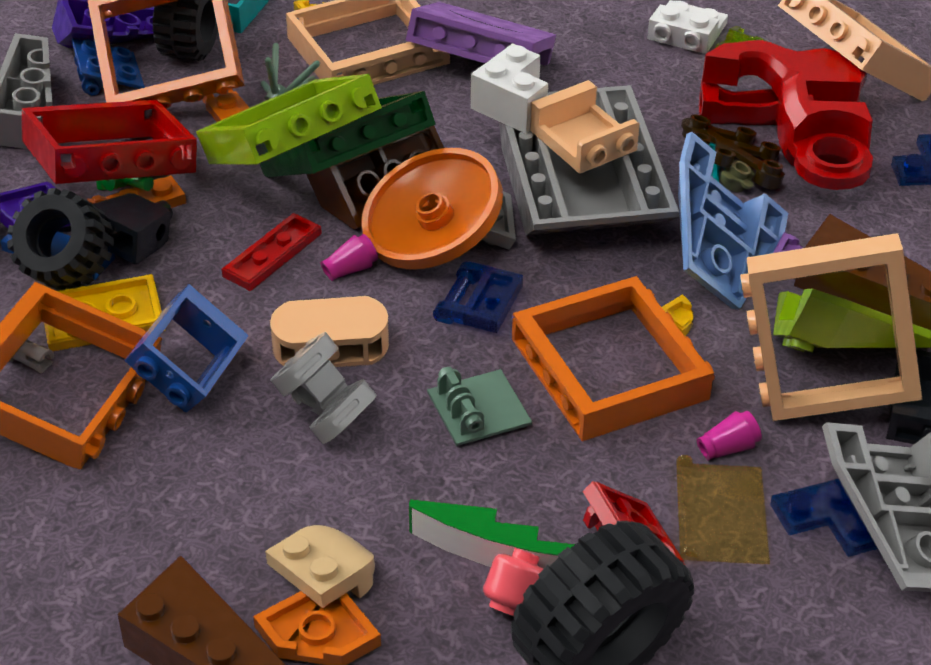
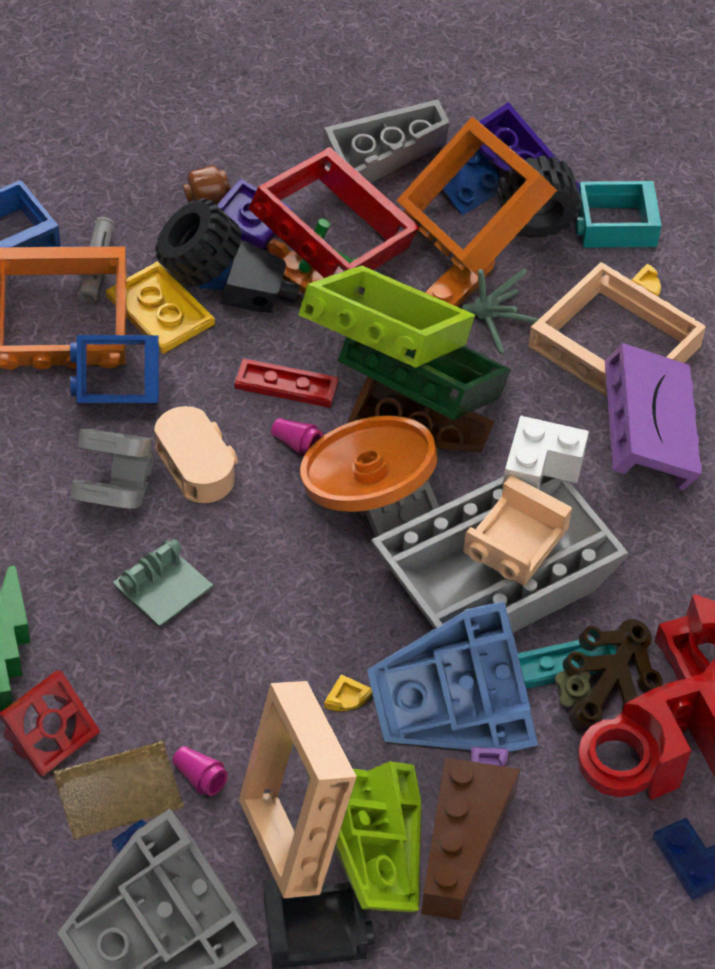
camera: 65 degrees right, 10 degrees up
(489, 301) = (294, 549): clear blue plate -> none
(628, 408) = (221, 616): orange window -> none

